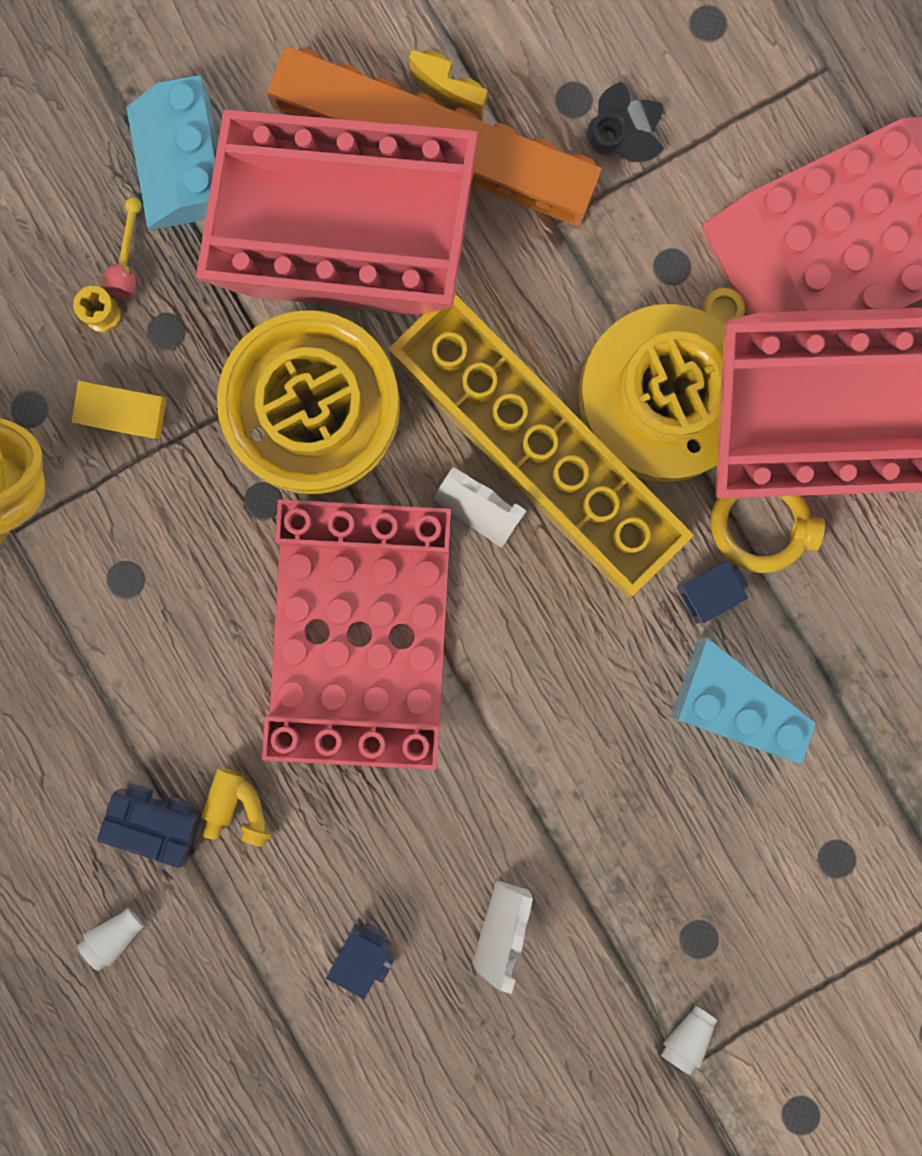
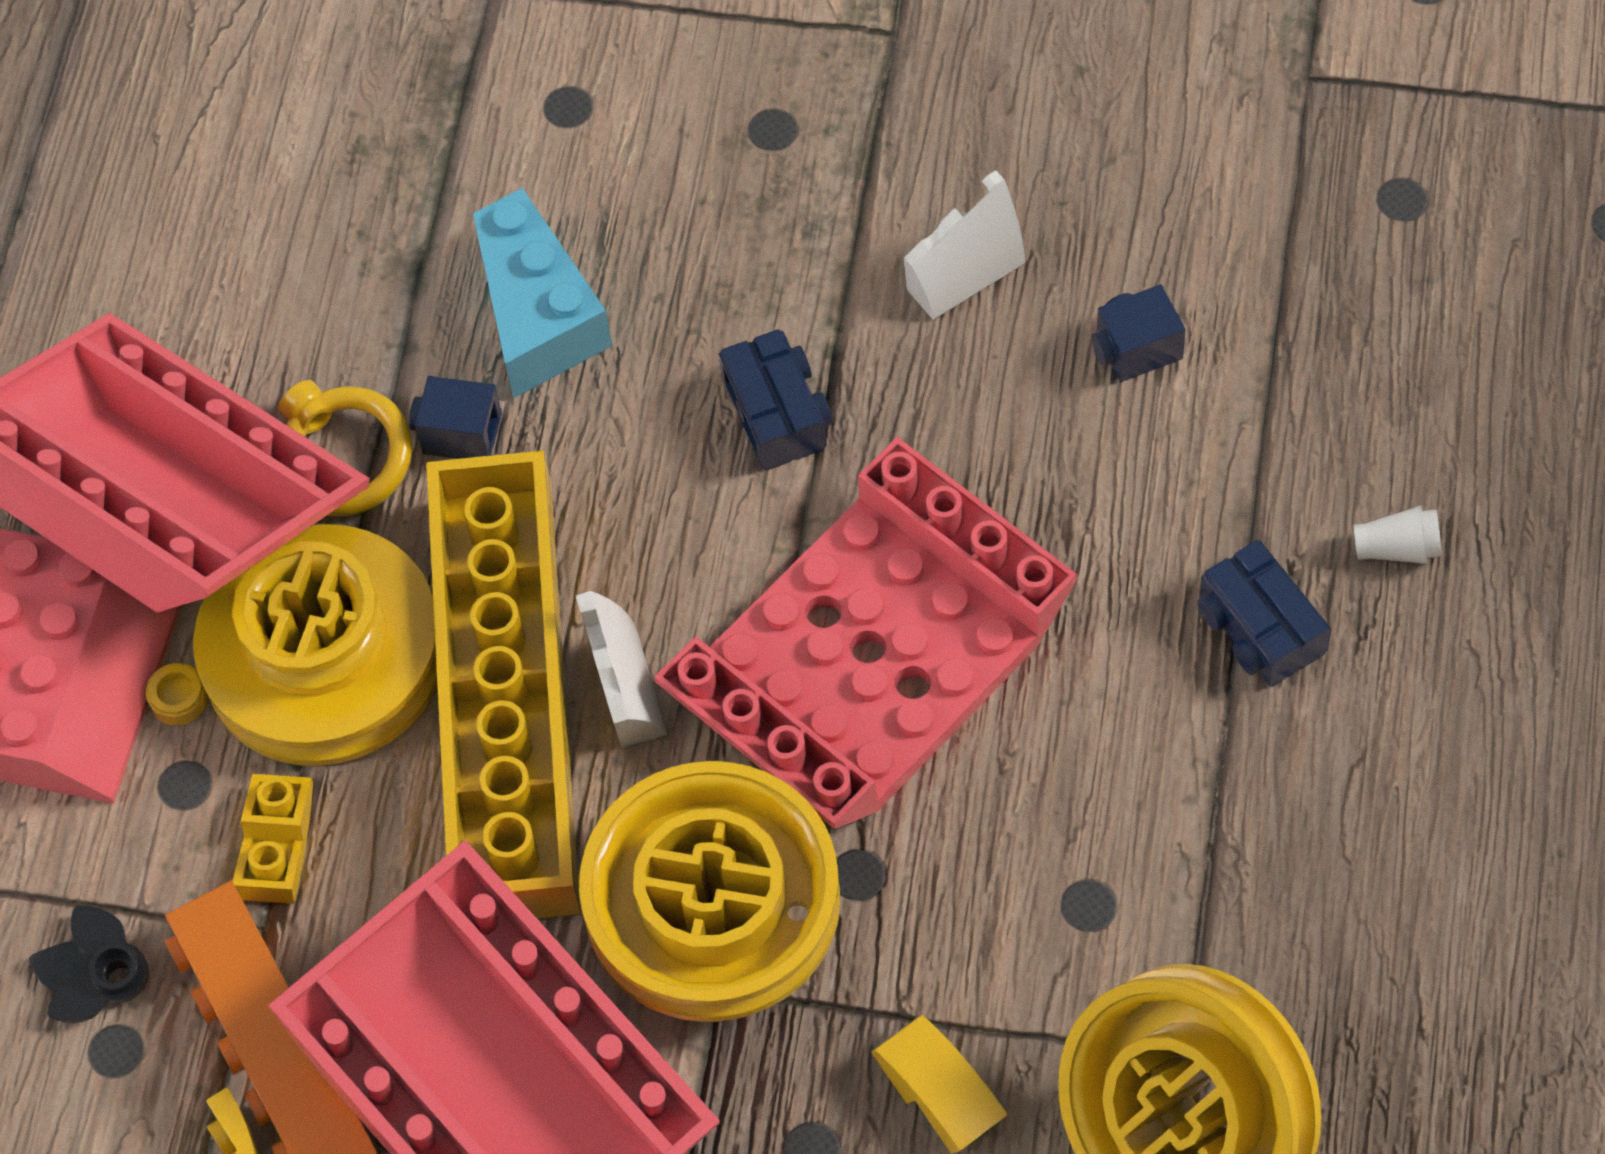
camera: 135 degrees left, 25 degrees down
(221, 803) = (1166, 586): yellow plant -> none
(539, 749) = (774, 400): none -> dark blue brick
(592, 270) = (274, 838): none -> yellow slope
(690, 1041) = (863, 43): white cone -> none

